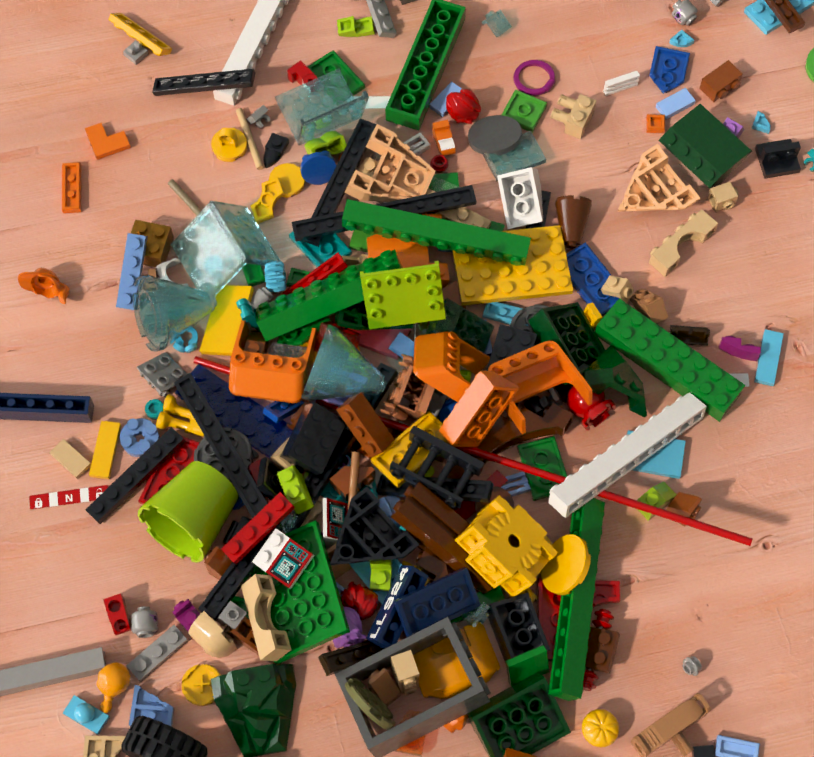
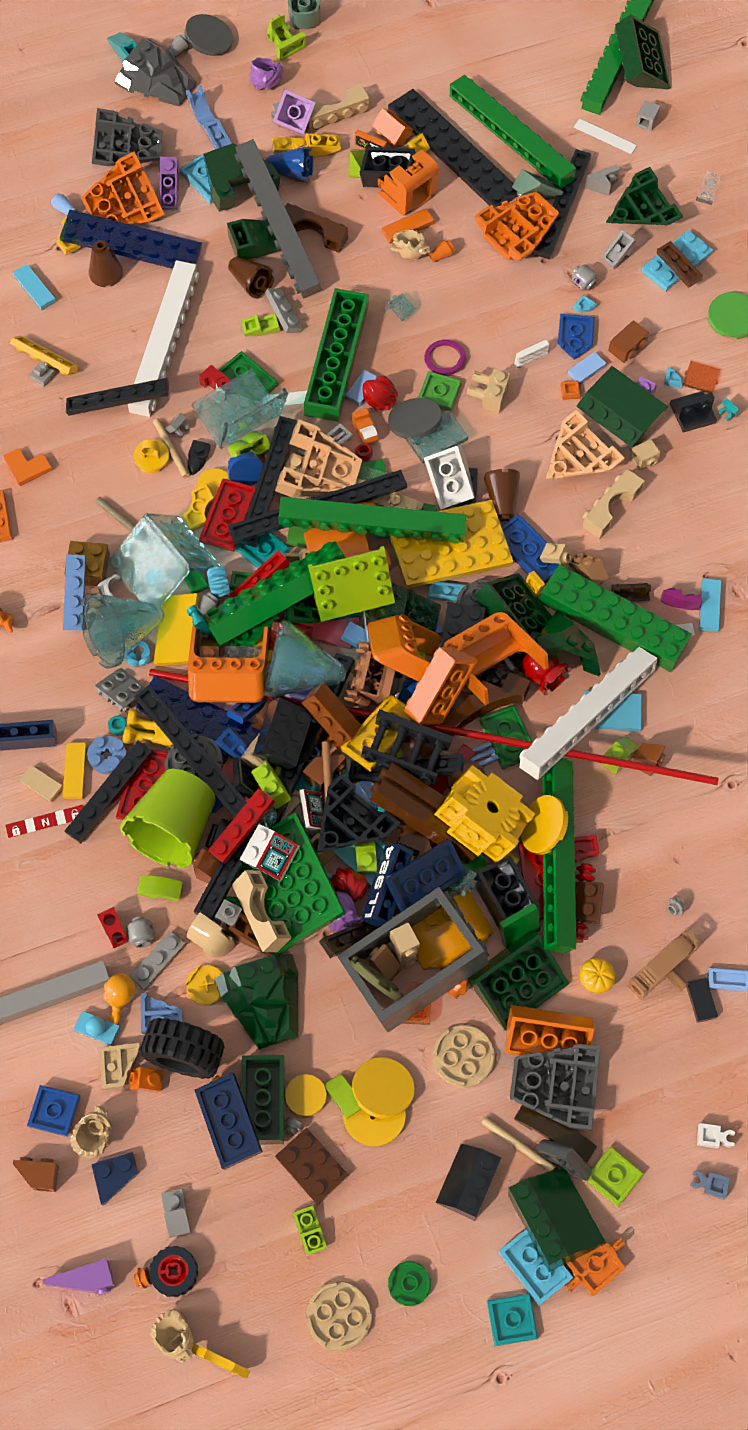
camera: 10 degrees left, 0 degrees up
(173, 579) = (161, 887): none -> lime slope
(185, 613) = (180, 919): magenta bracket -> none
(262, 442) = (231, 744): none -> blue plate
(295, 205) = (228, 507): none -> red tile
(790, 124) = (701, 377): none -> clear orange piece

